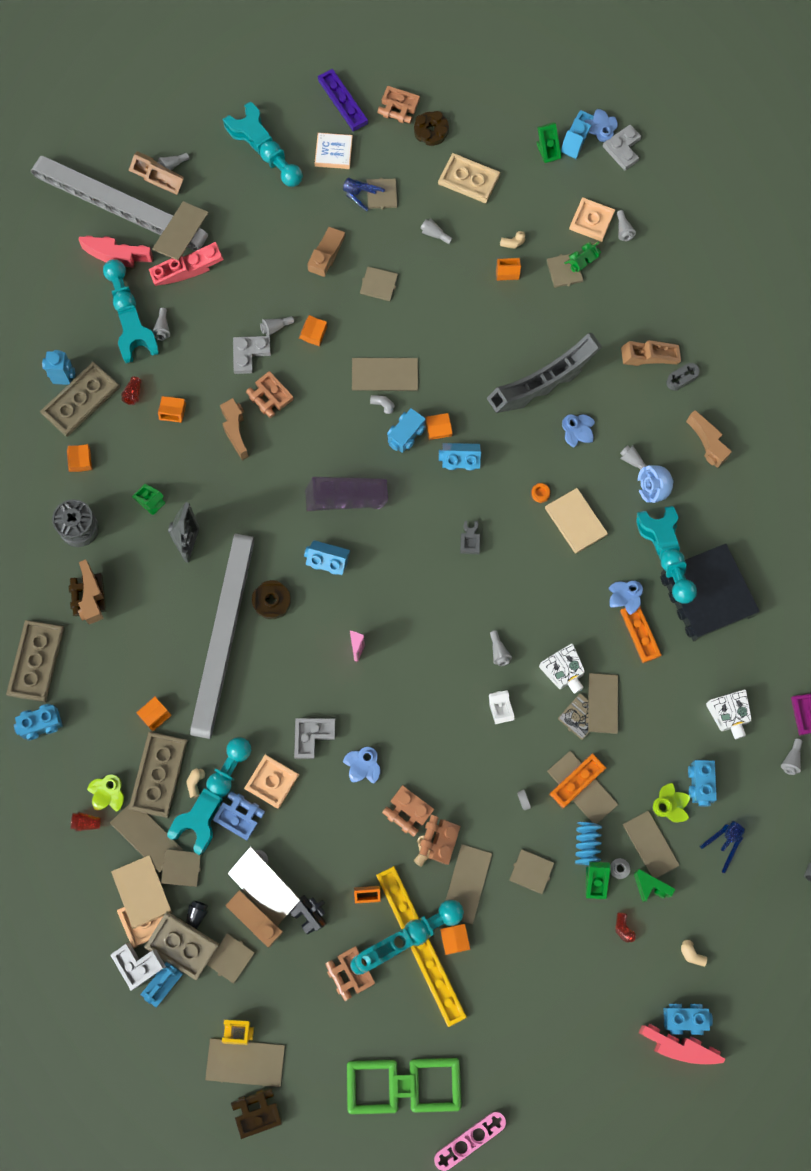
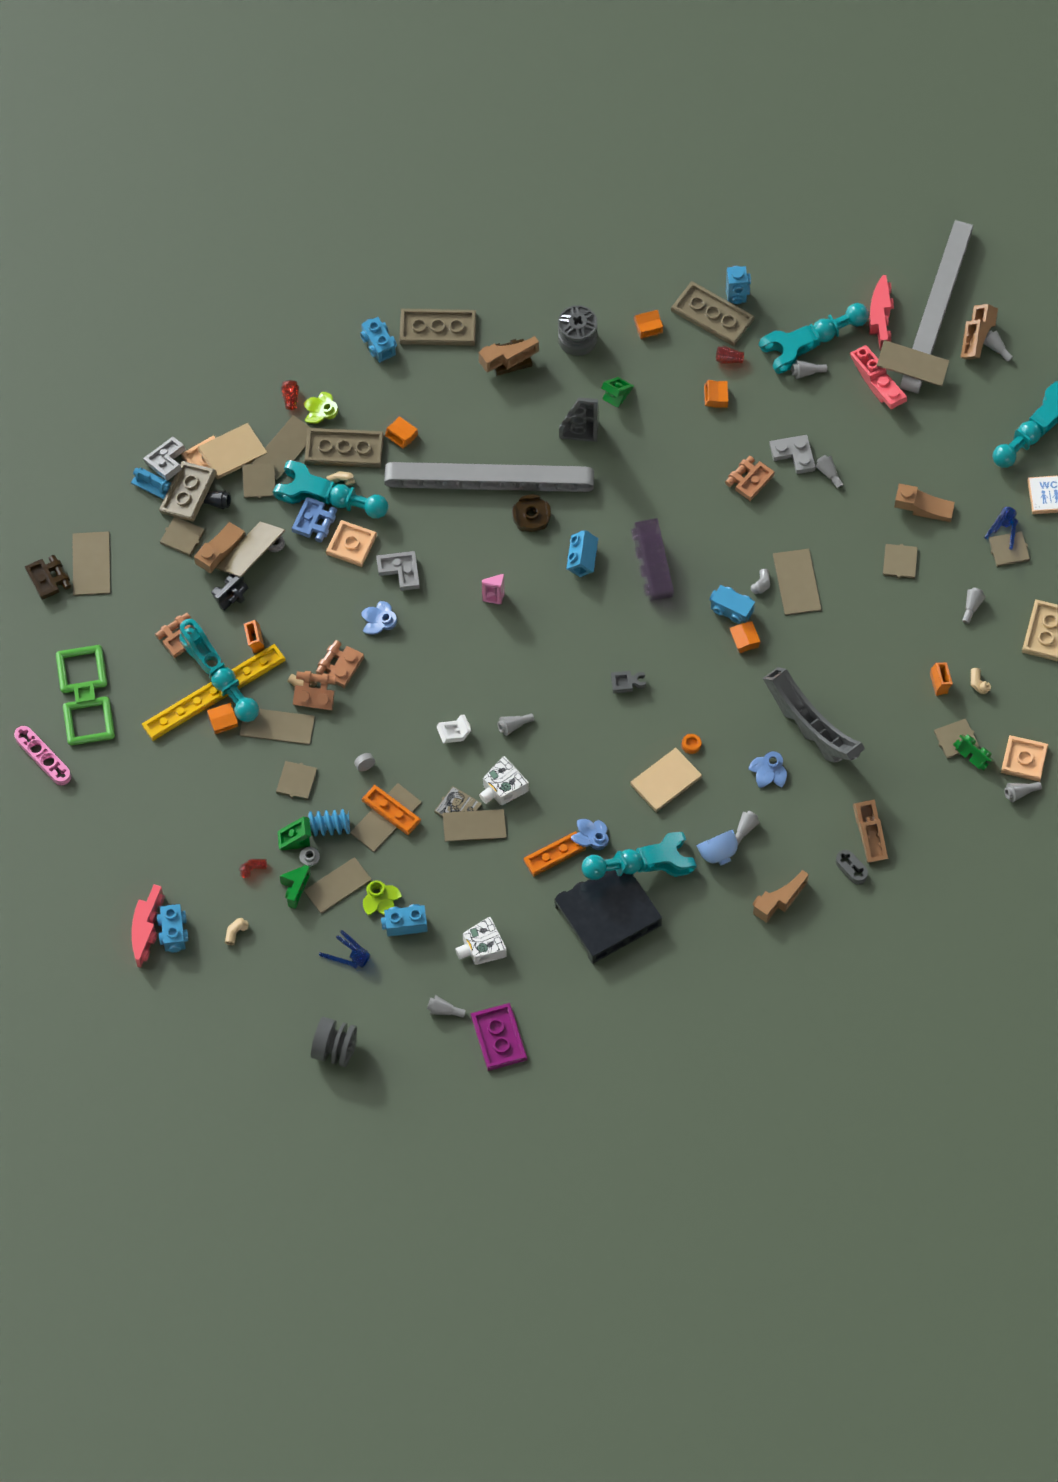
camera: 85 degrees right, 10 degrees down
(234, 416) = (704, 450): medium nougat slope -> none
(237, 1032) = (116, 550): yellow window -> none
(313, 330) = (830, 507): orange piece -> none
(460, 456) = (714, 659): dark azure brick -> none

